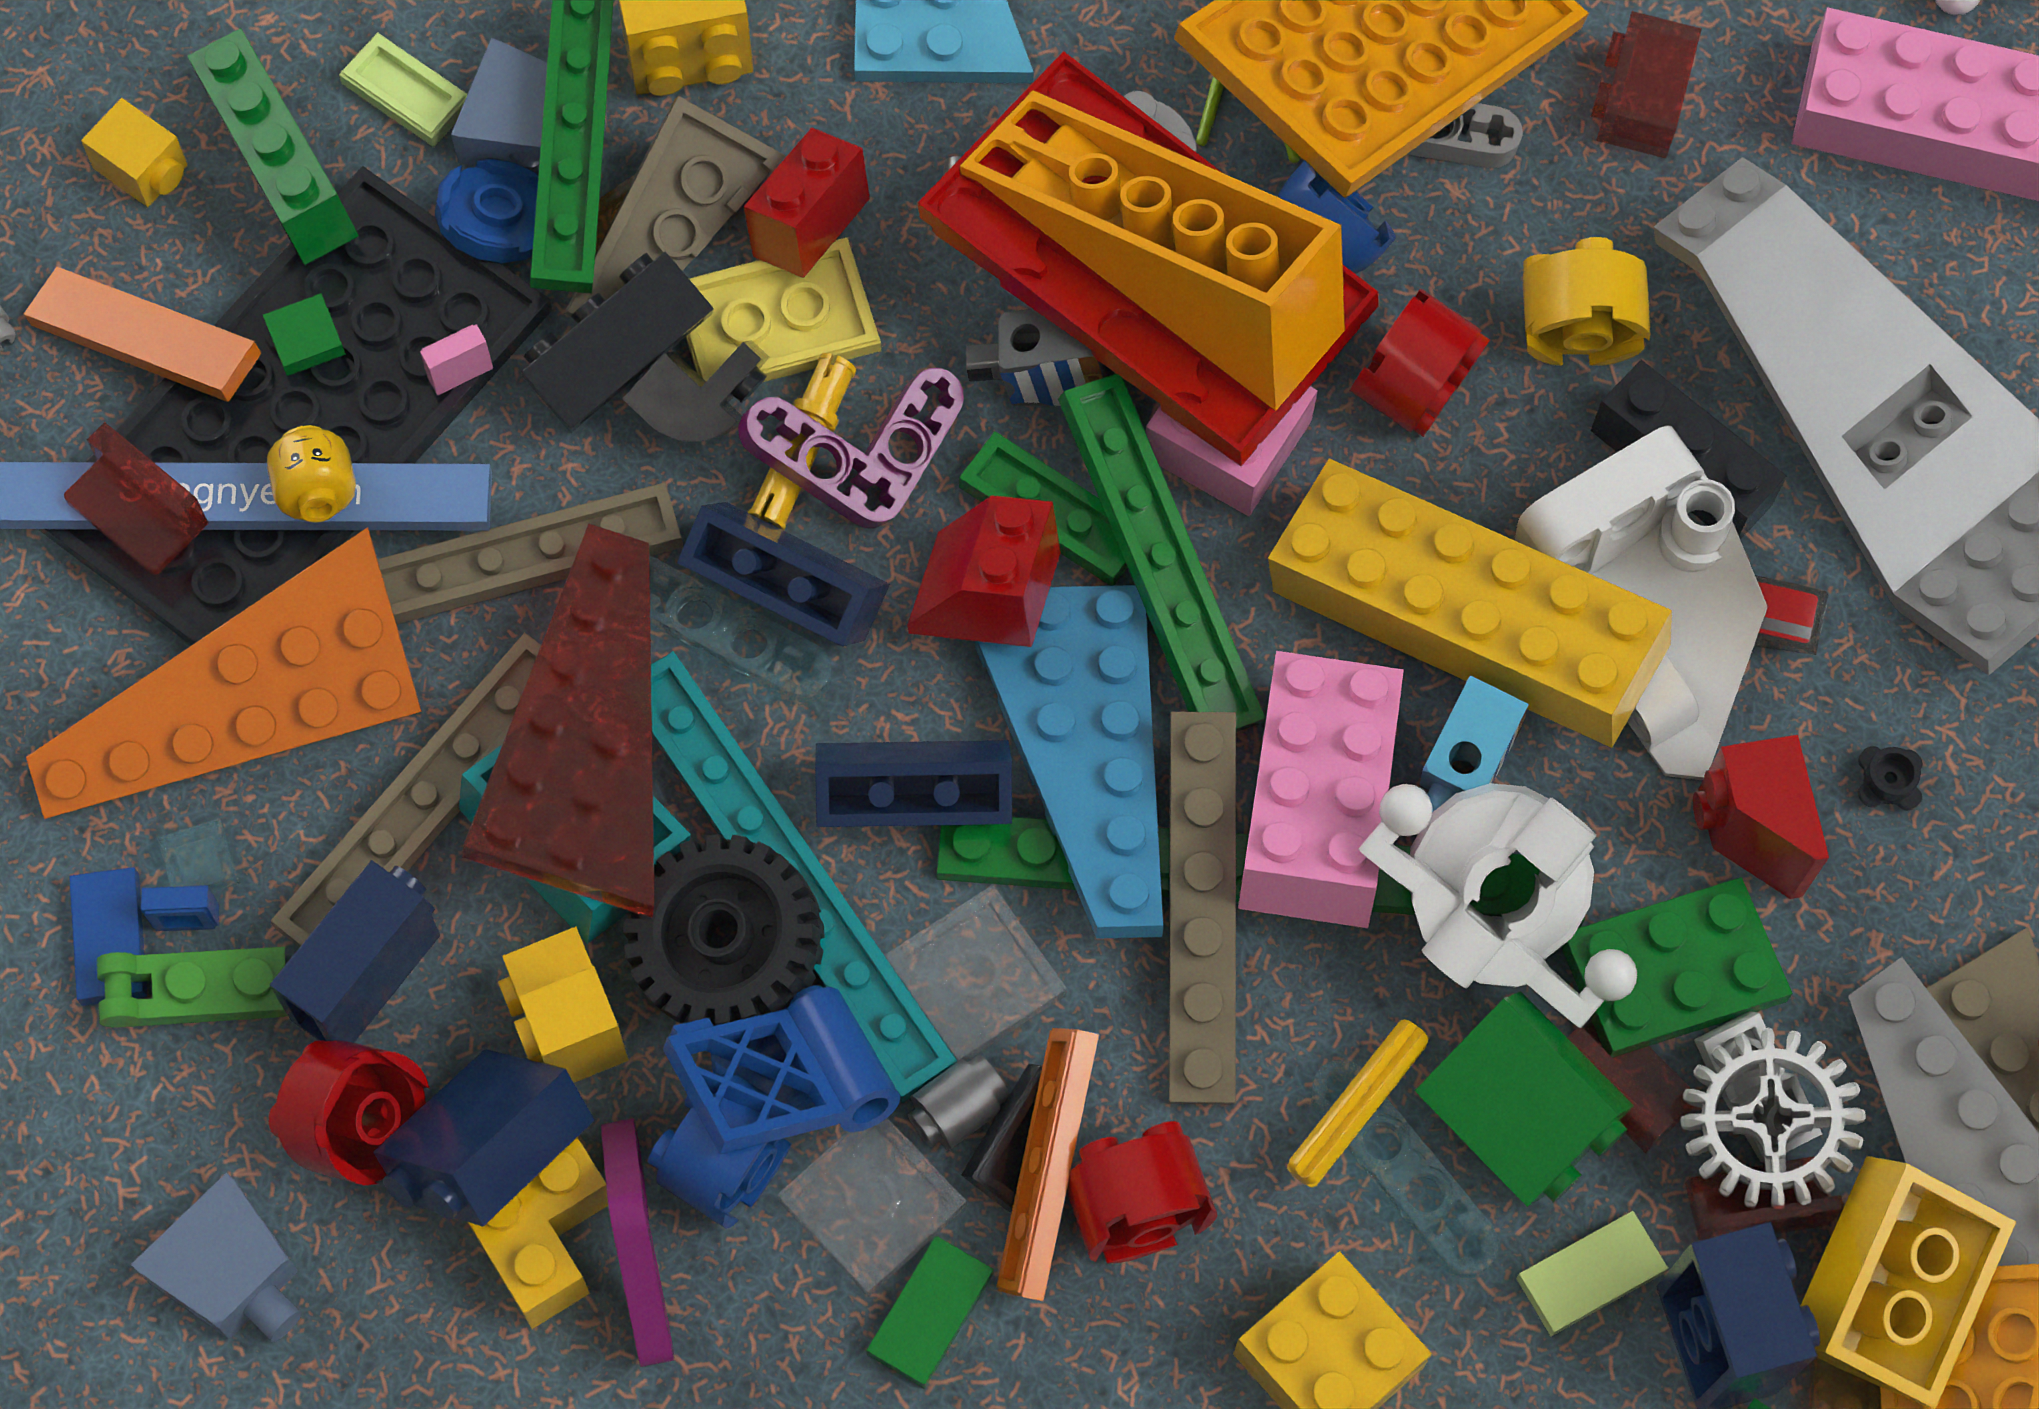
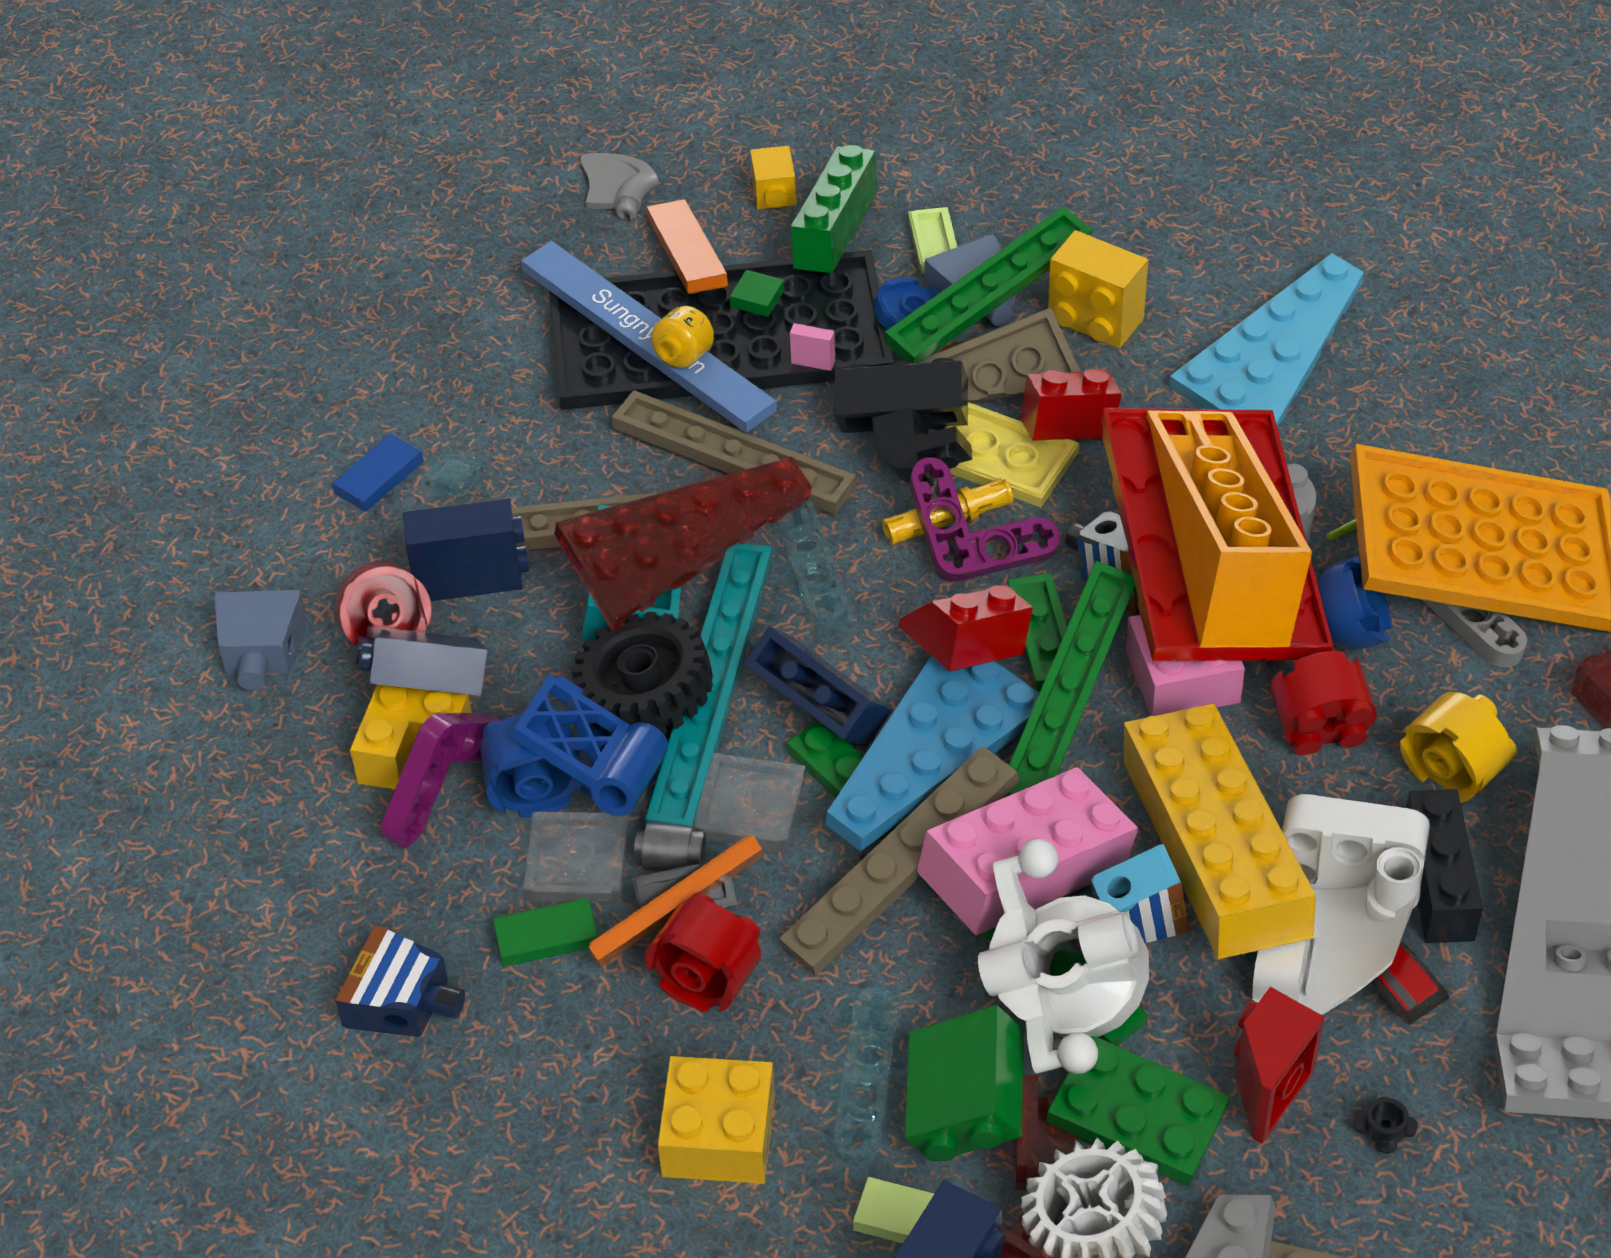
camera: 50 degrees right, 20 degrees down
(135, 502) = (593, 297): clear red panel -> none
(180, 908) = (419, 480): blue tile -> none
(190, 986) = (377, 513): bright green plate -> none
(275, 677) = (573, 420): orange wing -> none
(563, 1006) = (528, 647): yellow brick -> none
(783, 573) = (864, 551): dark blue brick -> none
(1357, 1103) = (872, 1013): yellow axle -> none

